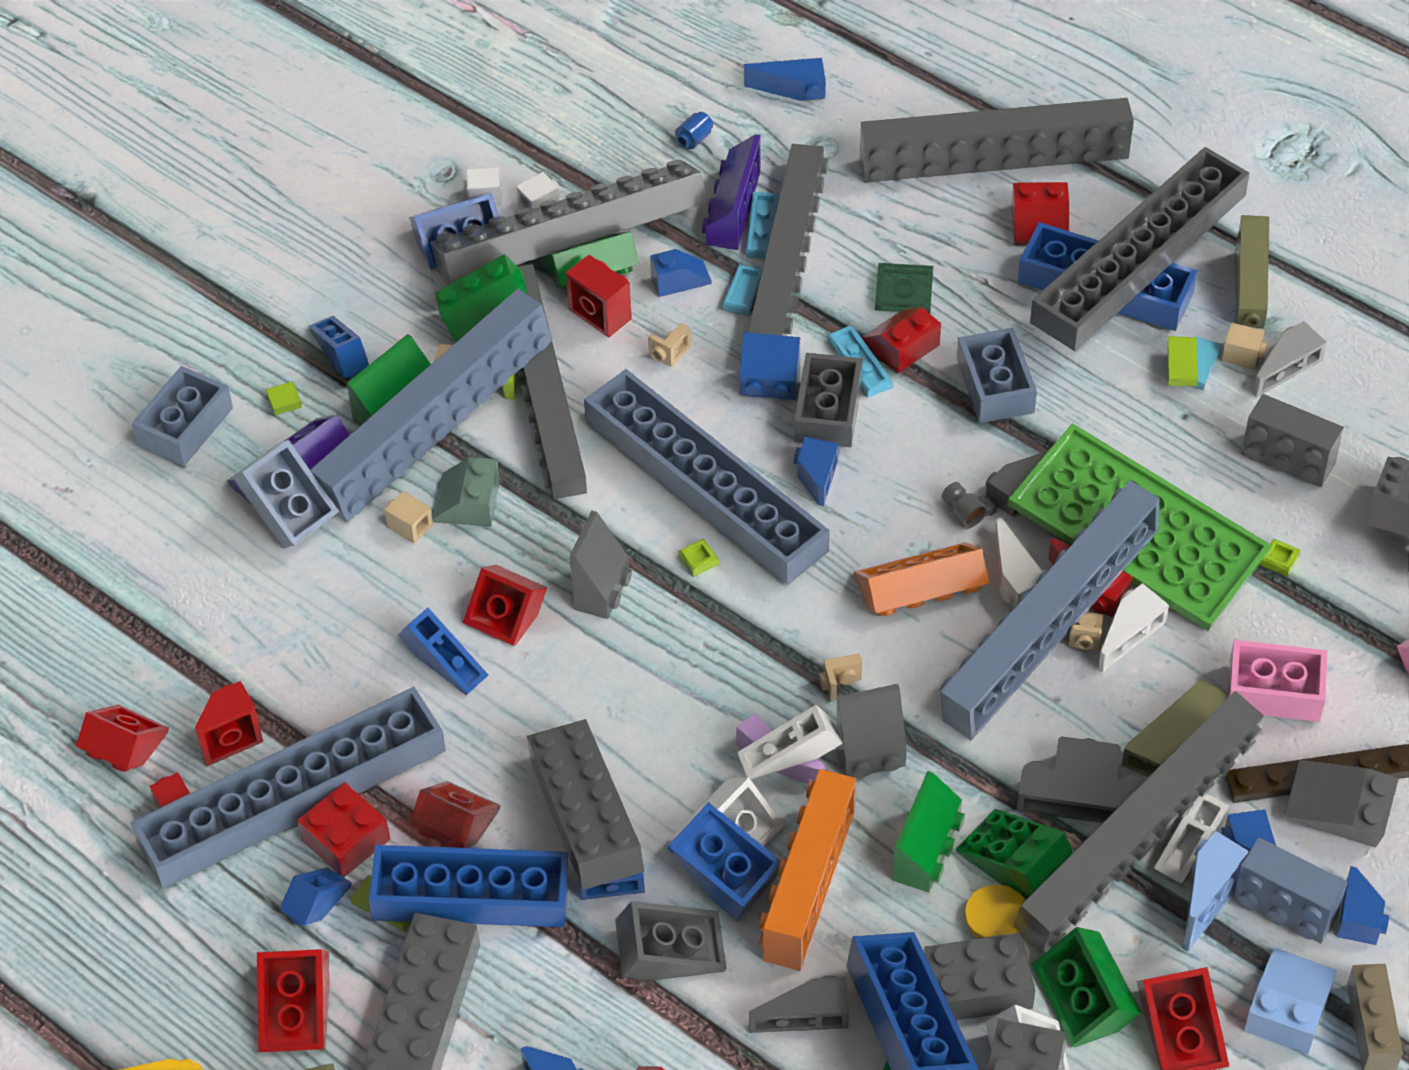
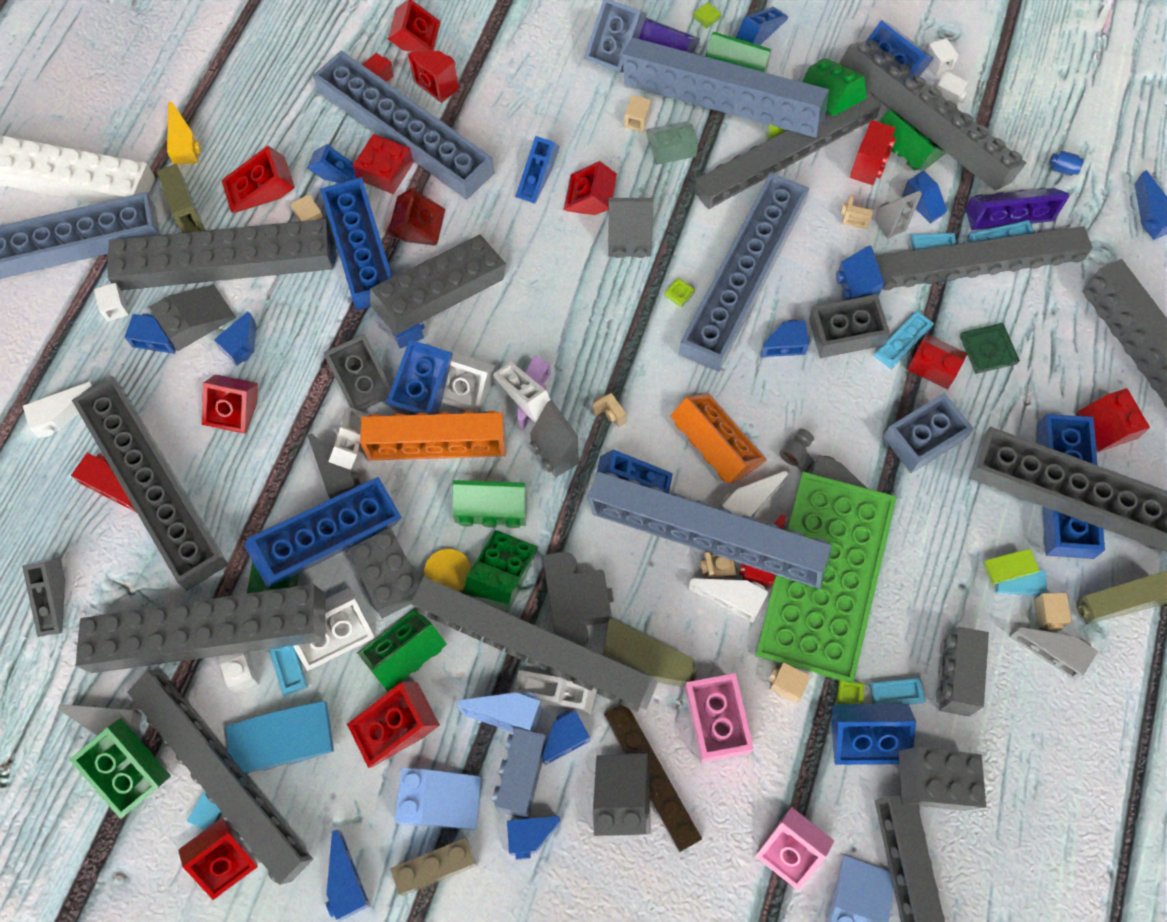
camera: 70 degrees right, 15 degrees up
(381, 944) = (306, 209): none -> tan brick
(696, 299) = (895, 216): none -> light grey slope
(772, 969) = (348, 439): none -> white slope
(926, 679) = (631, 468): none -> blue slope
(1252, 604) = (789, 682): none -> tan brick
(1291, 515) = (897, 691): none -> medium azure tile
(1333, 548) = (871, 733): none -> blue slope

